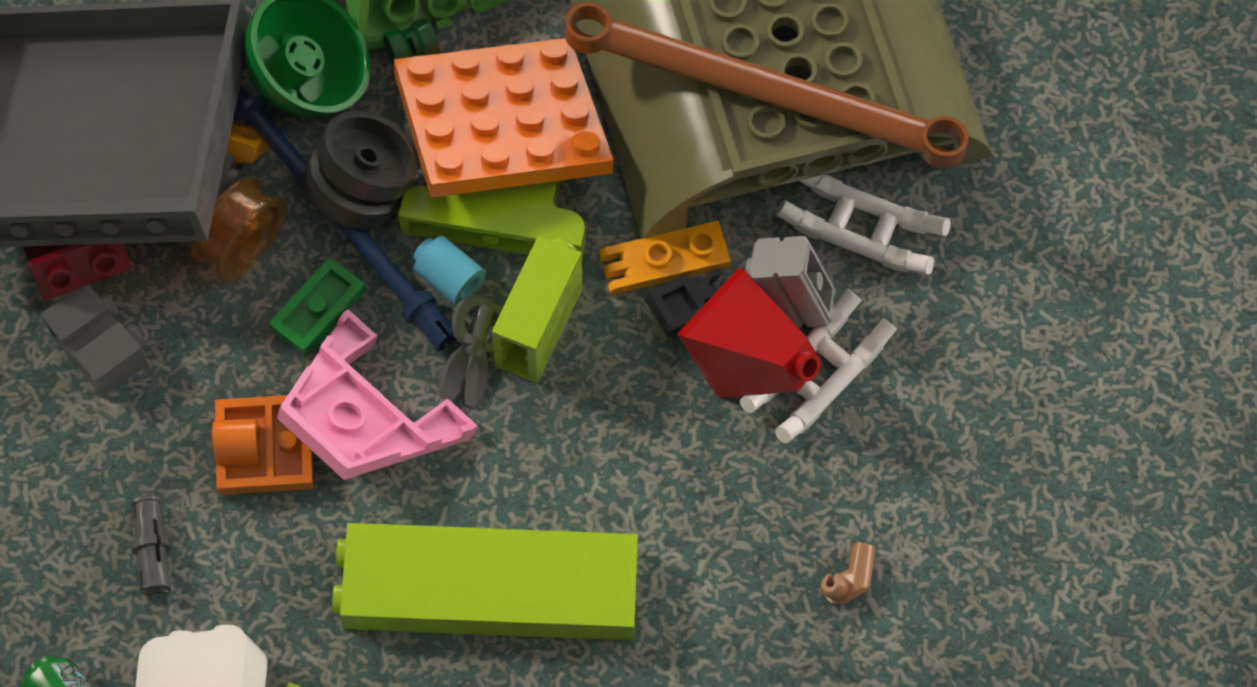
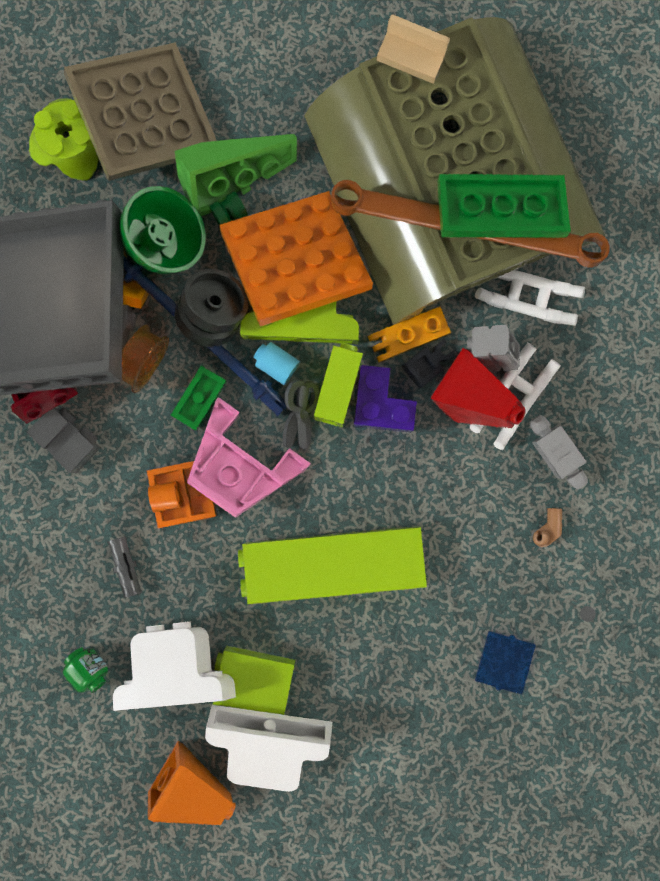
camera: 10 degrees left, 20 degrees up
(596, 355) = (373, 406): none -> dark purple brick
(815, 62) = (503, 206): none -> green plate
(878, 456) = (559, 452): none -> light grey piece

